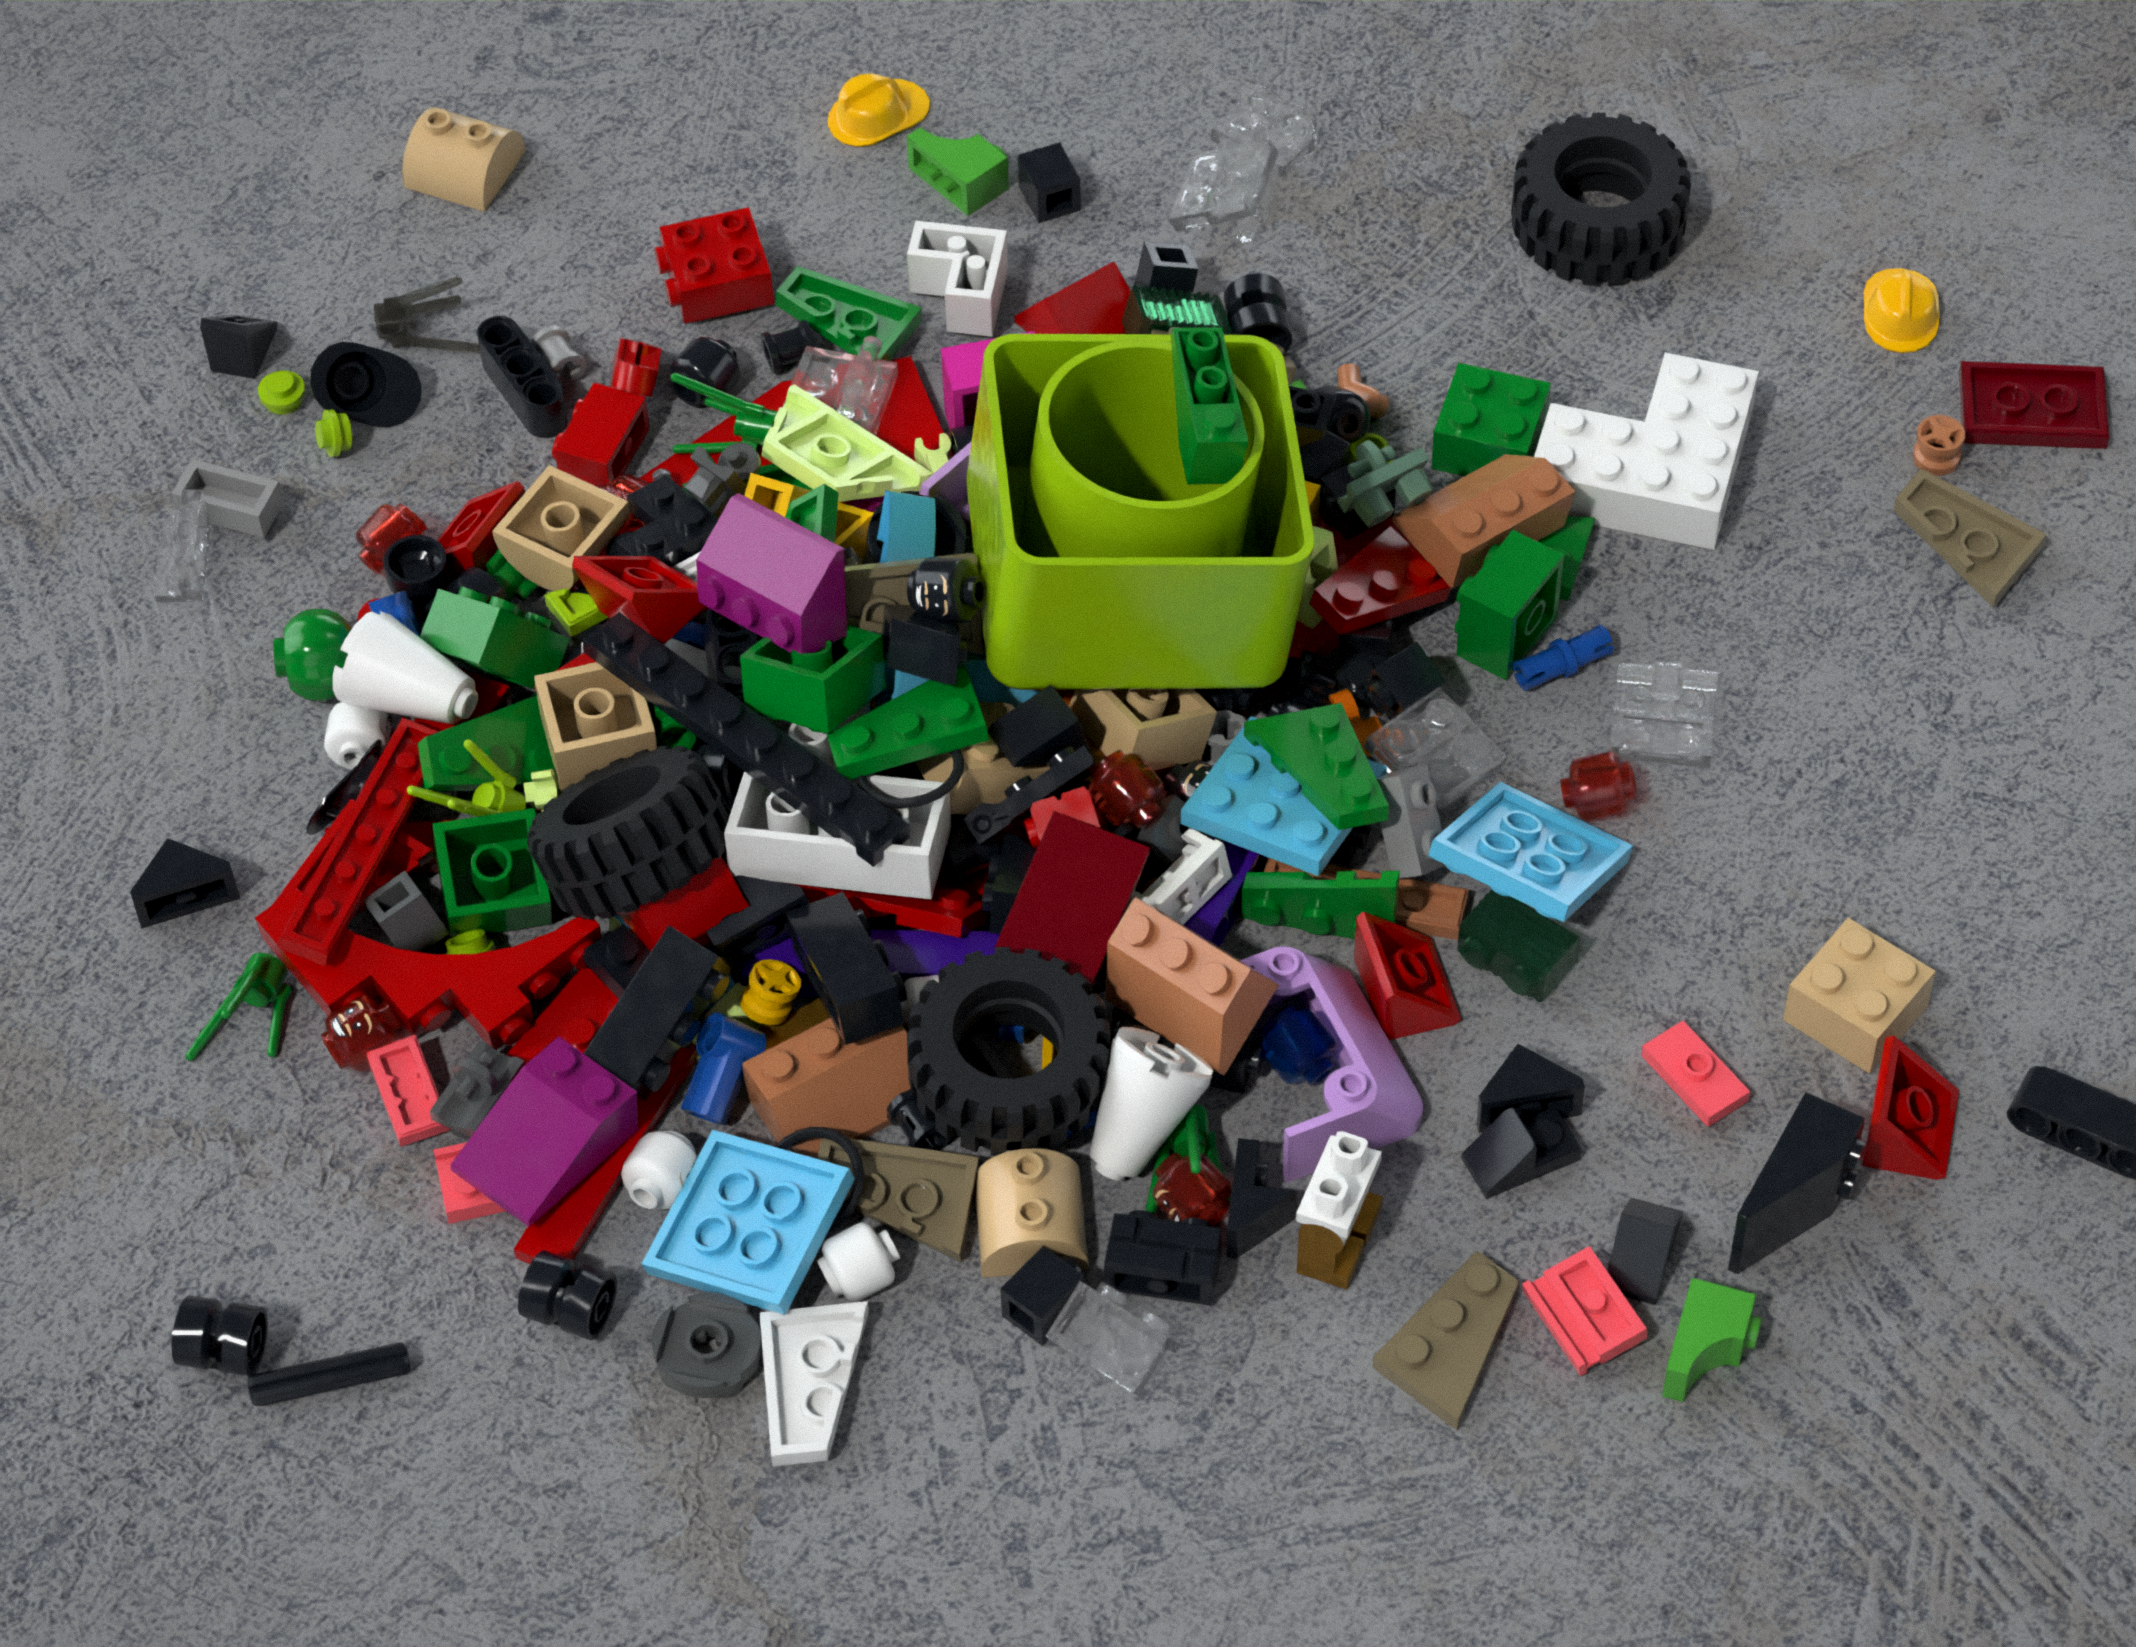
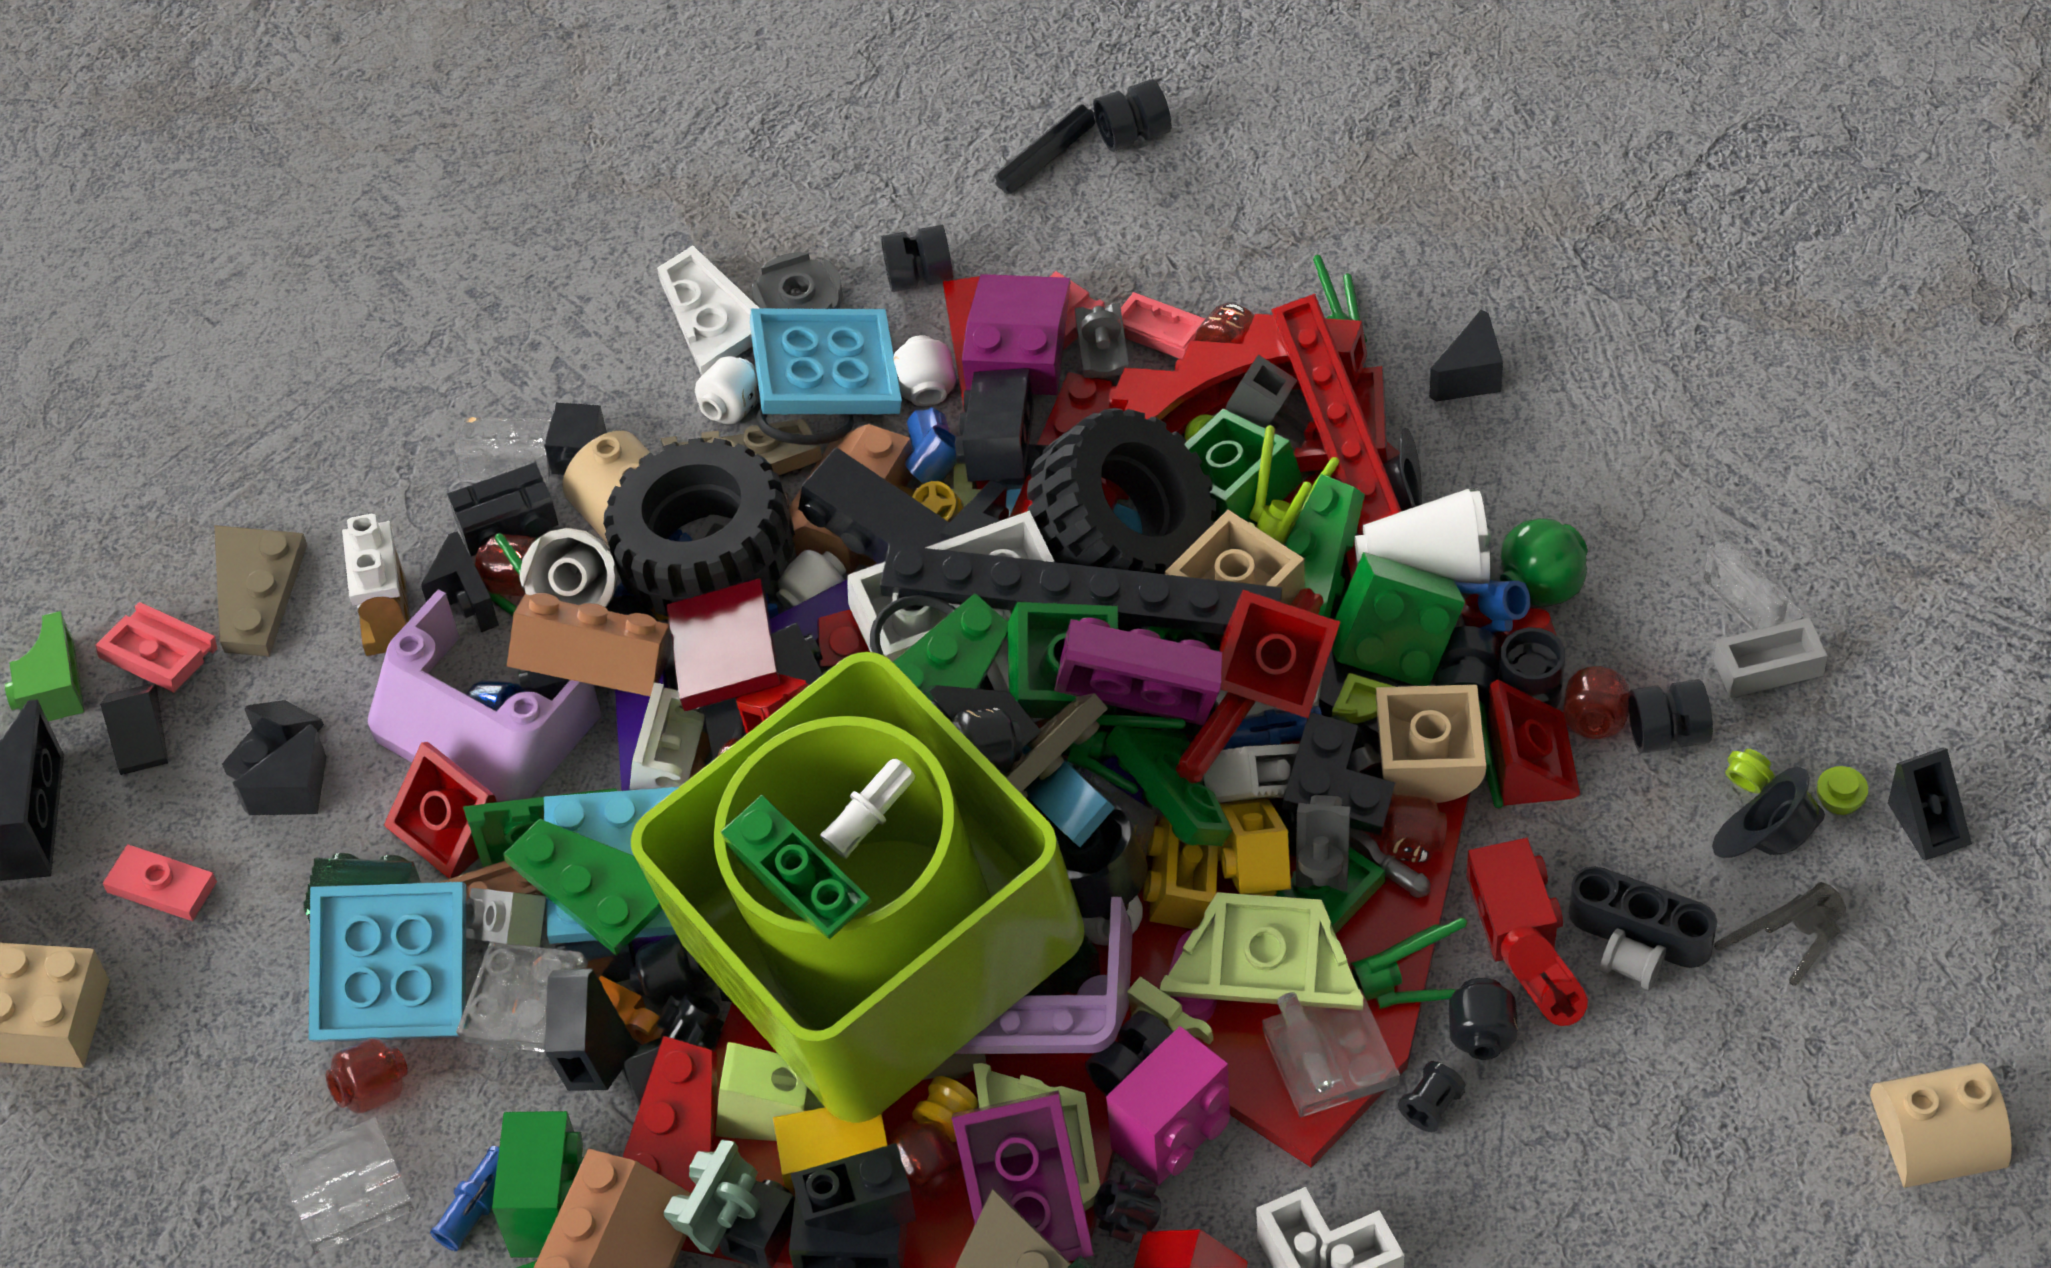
camera: 150 degrees right, 0 degrees up
(346, 492) = (1669, 716): none -> black wheel
(714, 265) = (1572, 1128): red brick -> none
(847, 312) = (1402, 1163): green wing -> none
(1115, 425) = (868, 808): none -> white axle

